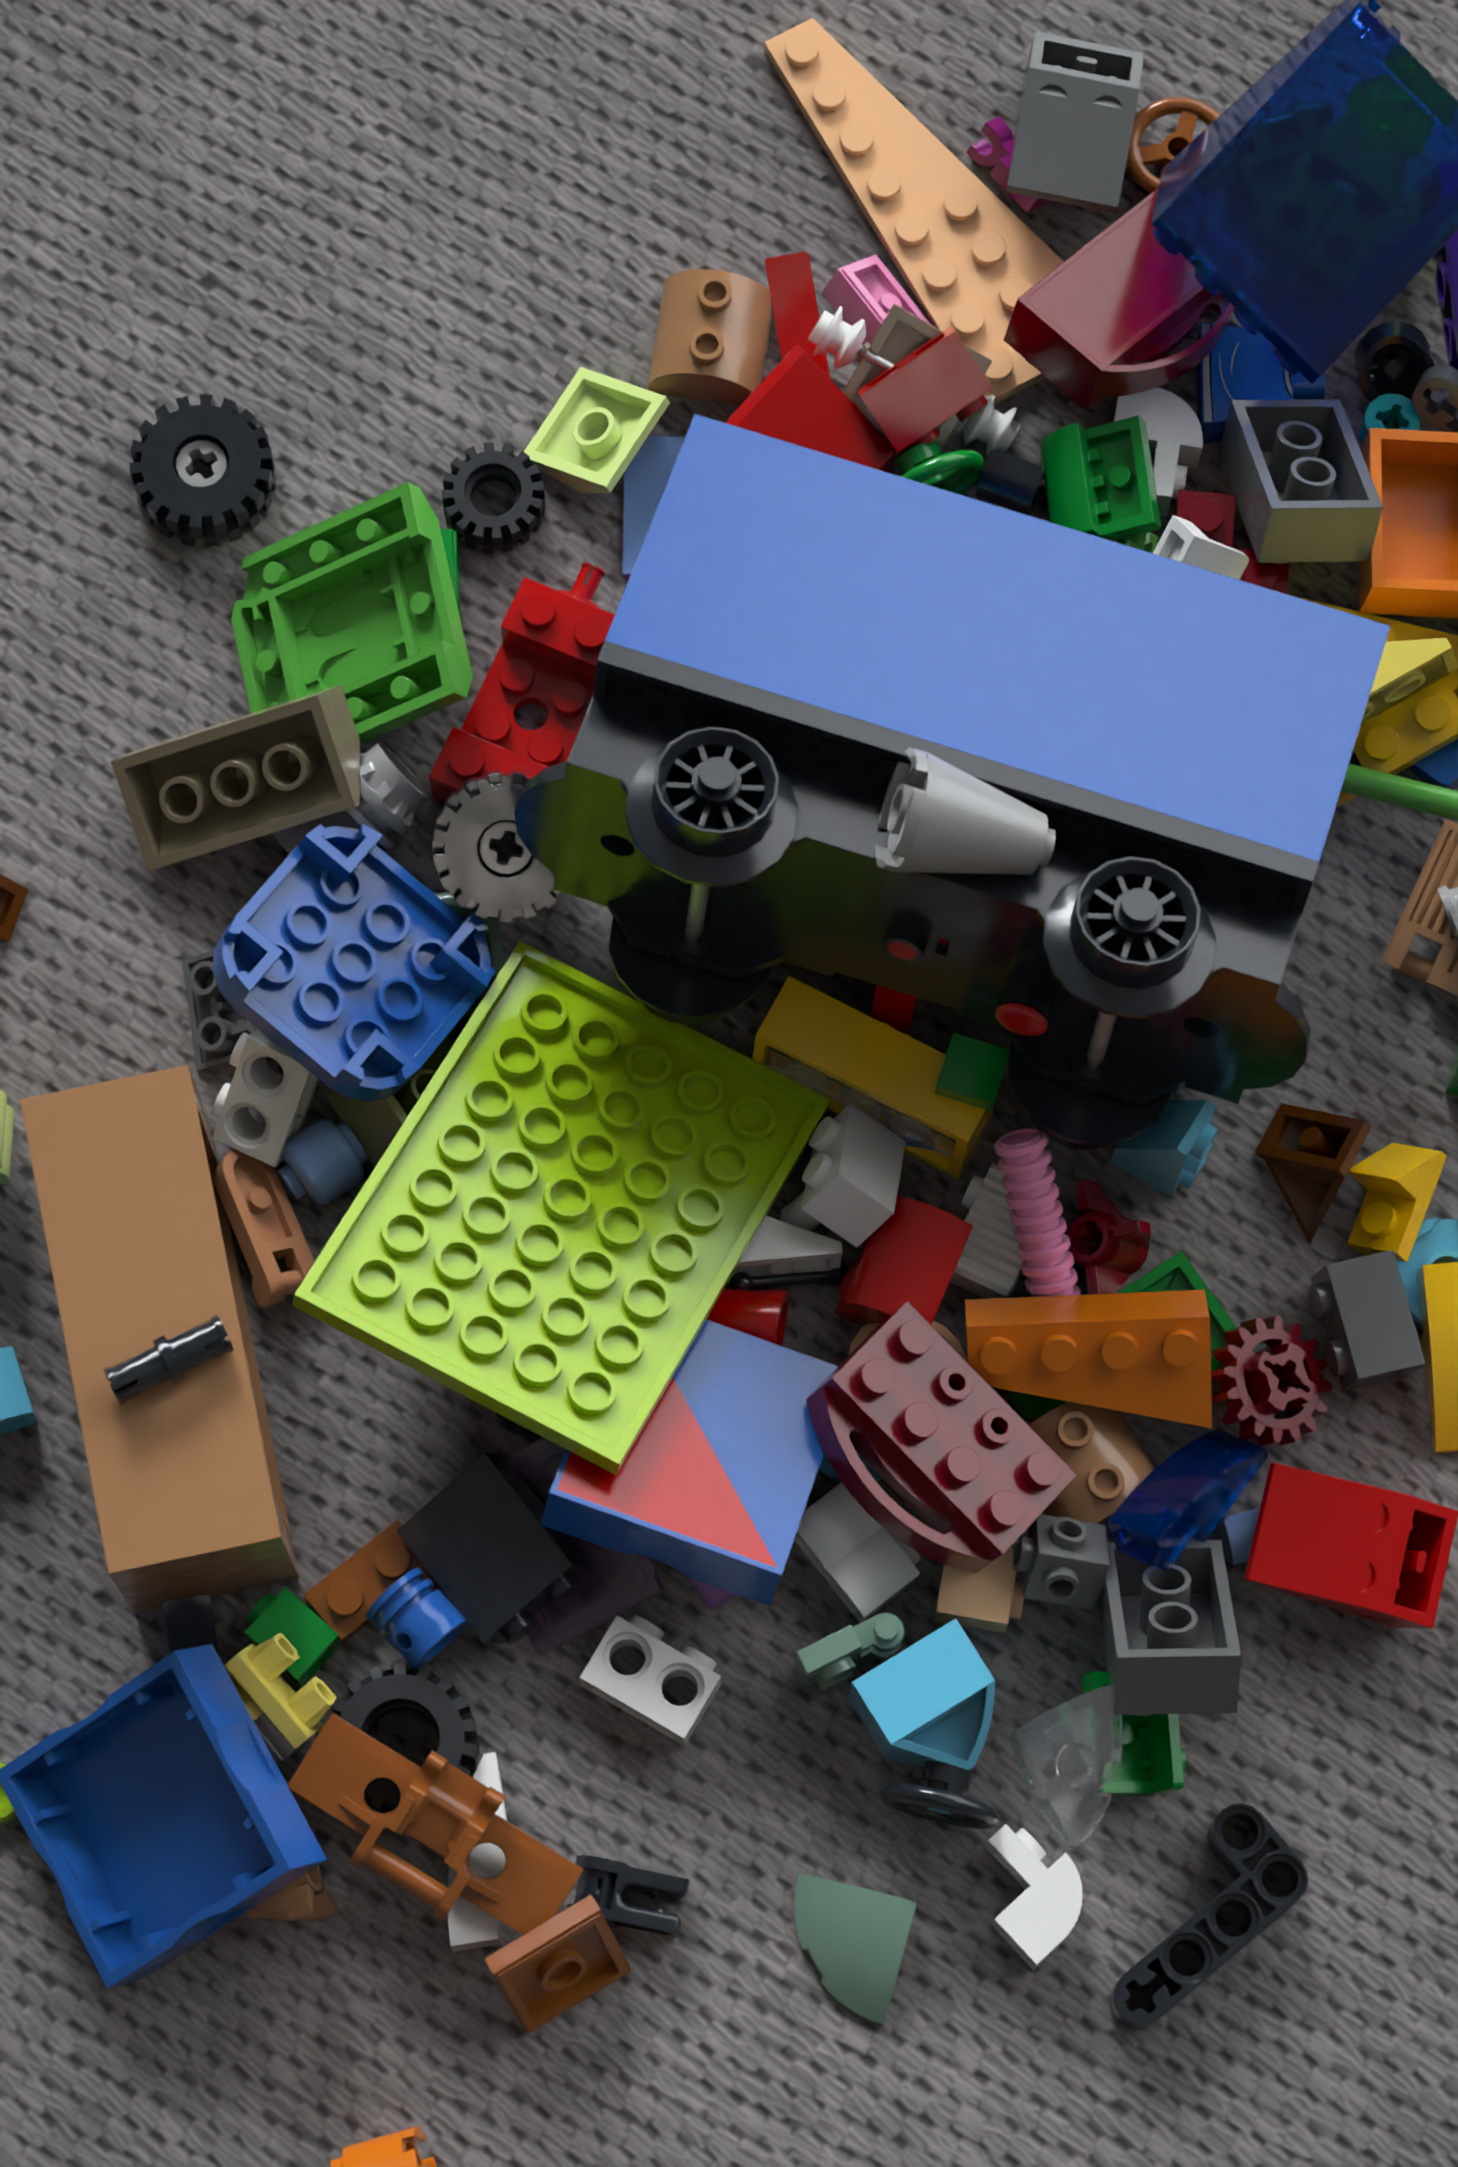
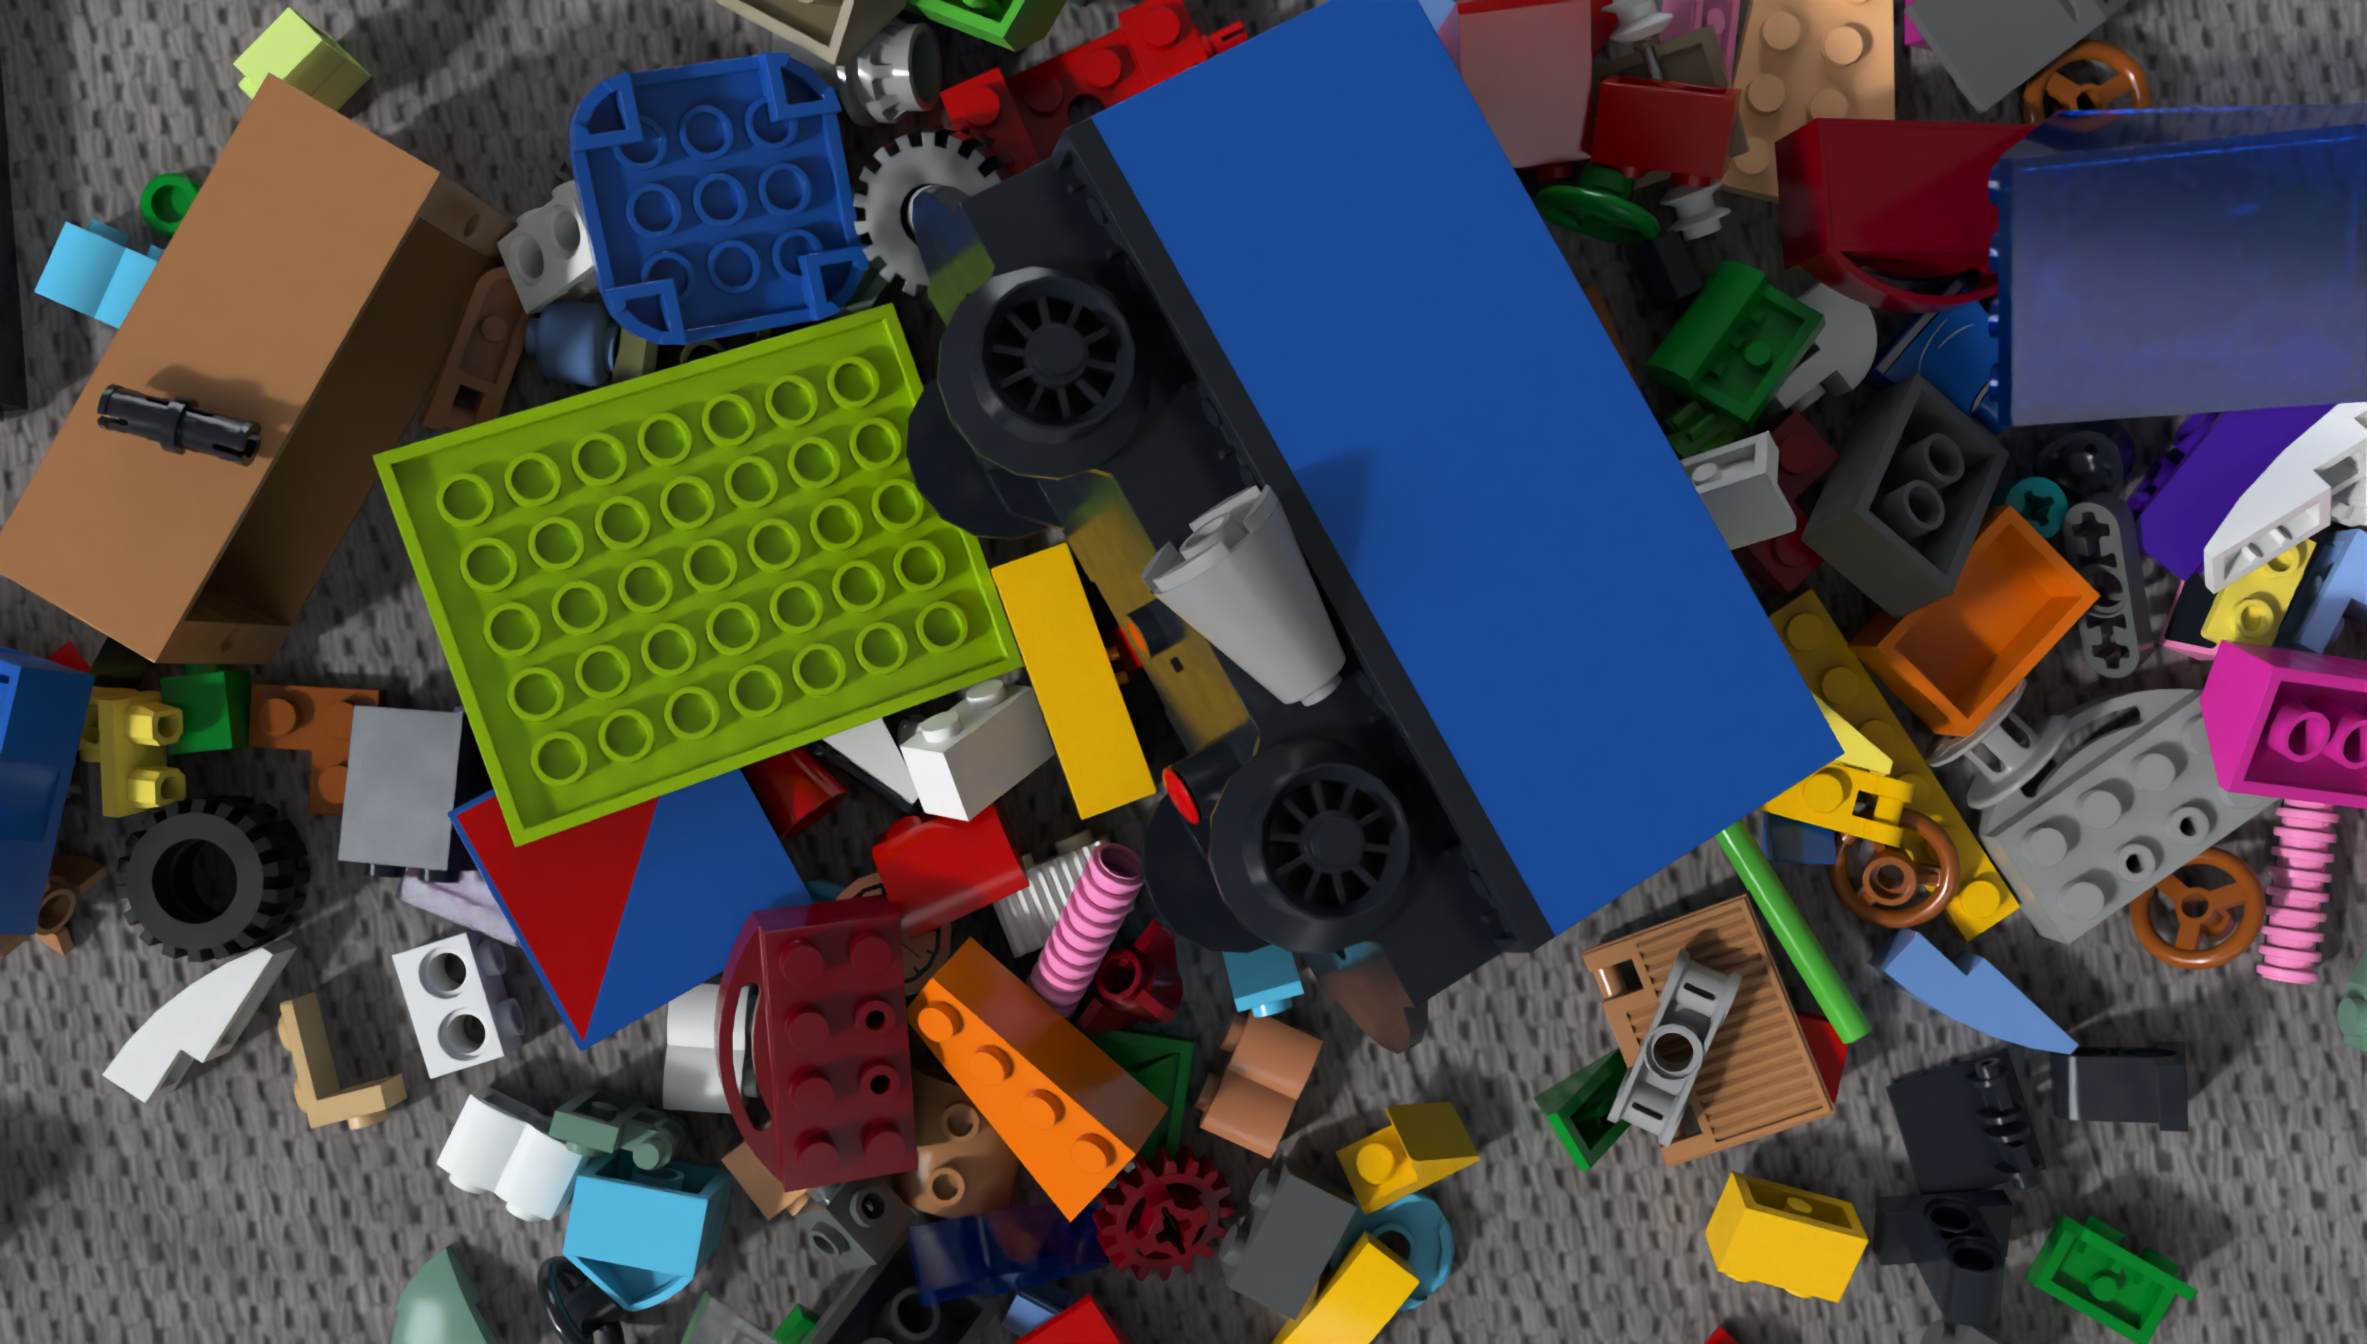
camera: 45 degrees right, 15 degrees up
(416, 1618) = (298, 795): blue piece -> none
(443, 1812) = (168, 975): dark orange piece -> none
(558, 1964) = (172, 1164): dark orange plate -> none
(622, 1877) = (273, 1157): black piece -> none
(646, 1817) = (317, 1082): none -> tan bracket
(789, 1753) = (508, 1151): none -> white brick
(972, 1071) = (1136, 764): green tile -> none
(1249, 1238) = (1258, 1081): none -> nougat brick
(1310, 1159) = (1365, 1078): reddish brown slope -> none

